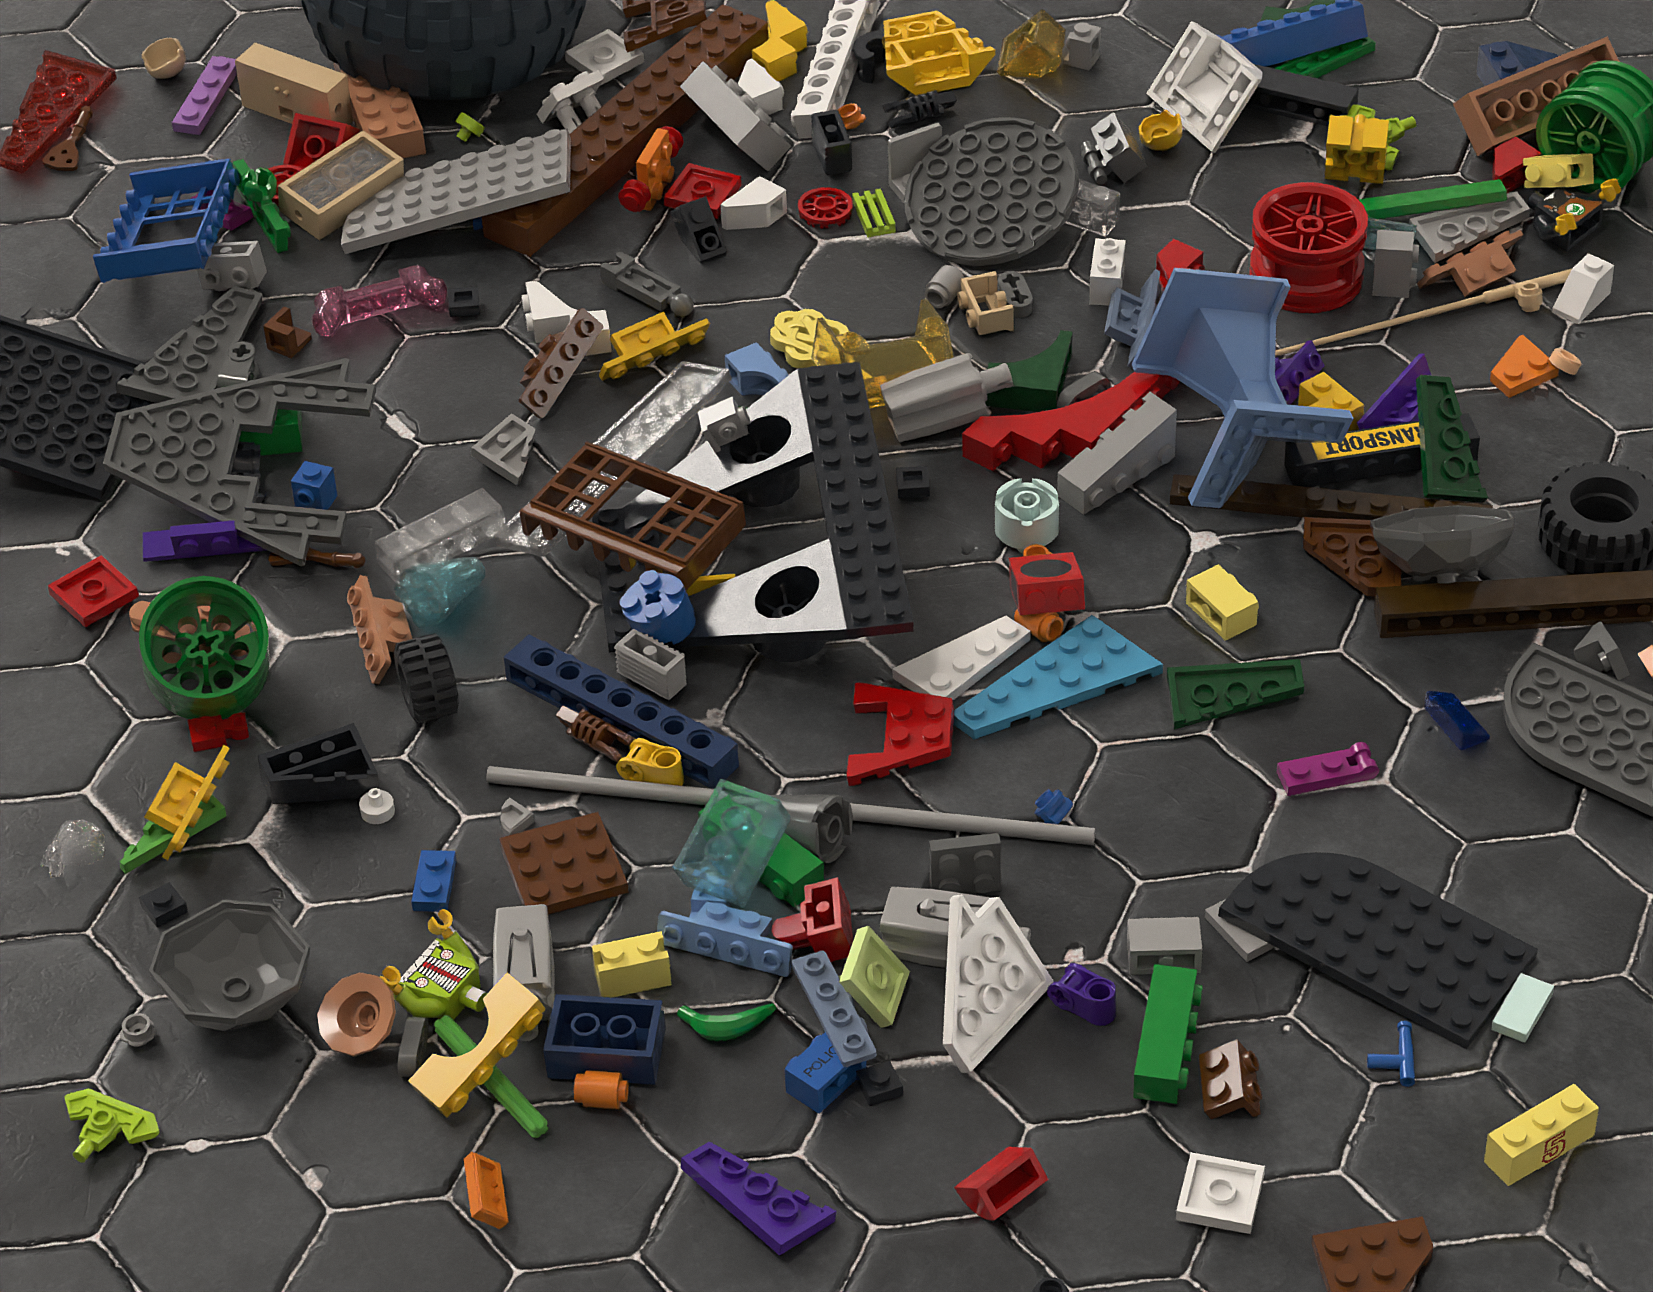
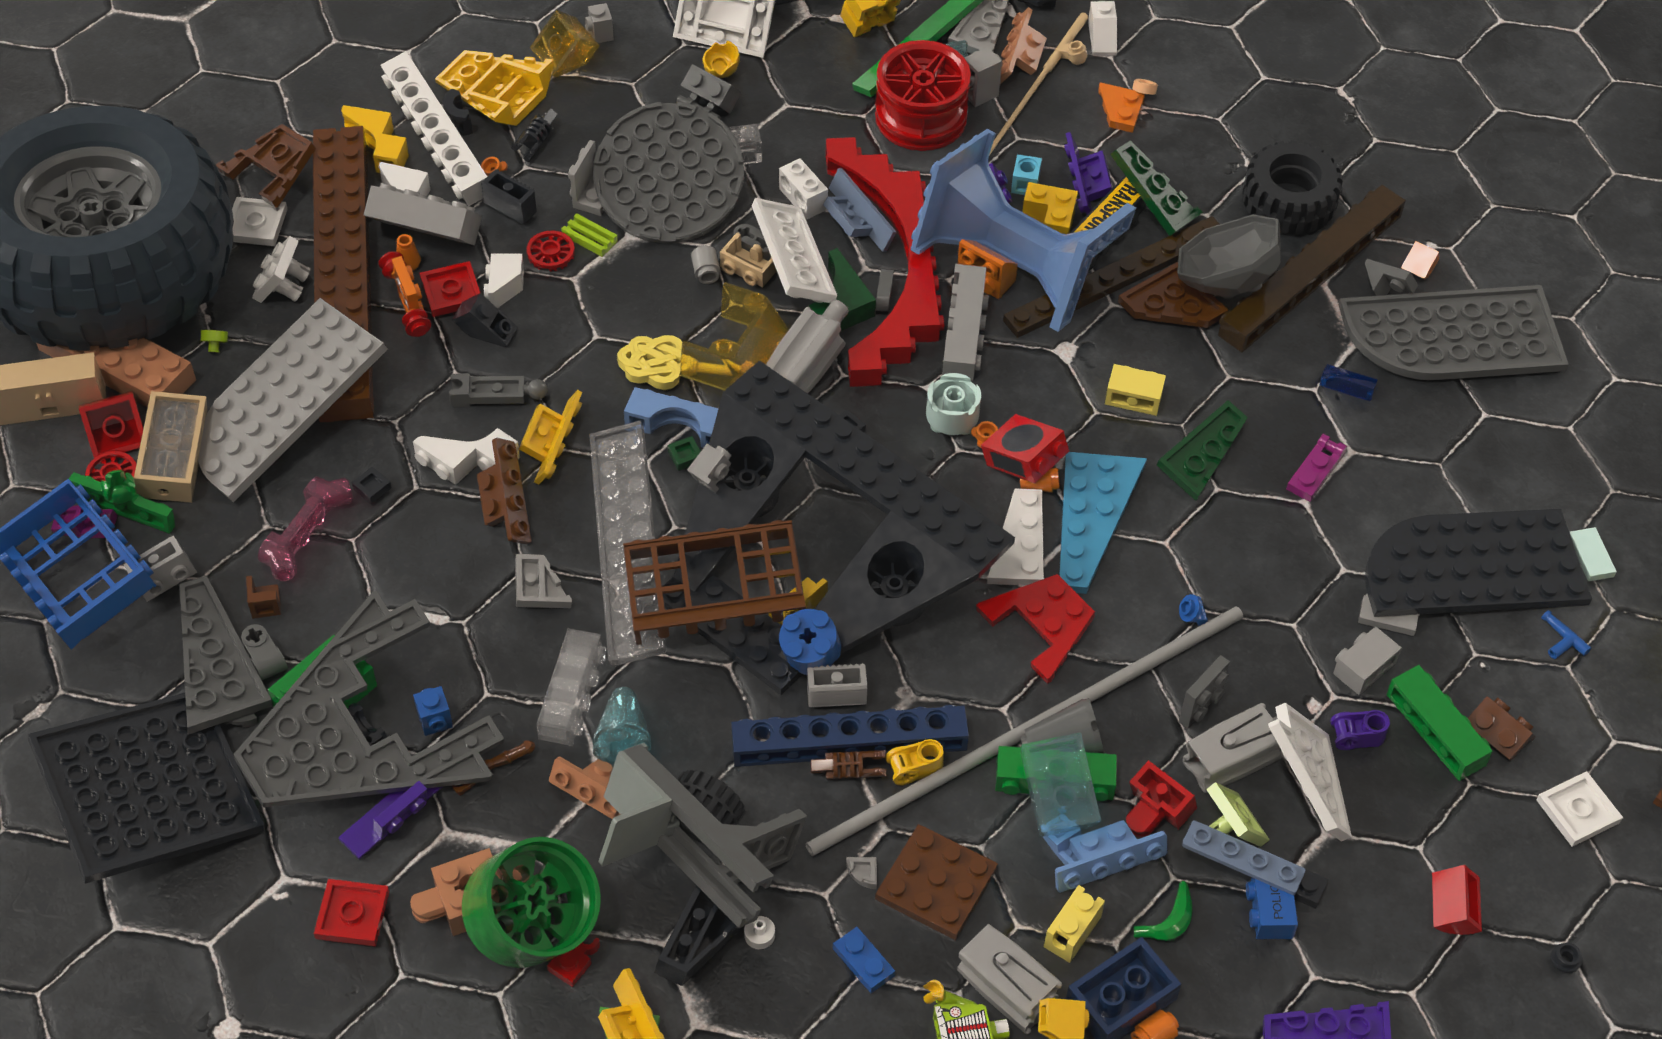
camera: 45 degrees left, 10 degrees up
(372, 654) = (646, 798): none -> dark grey piece
(695, 144) = (409, 251): none -> orange cone
(1024, 310) = (794, 251): none -> white plate
(1196, 418) = (999, 270): none -> orange slope
(1345, 368) = (1026, 170): none -> medium azure brick

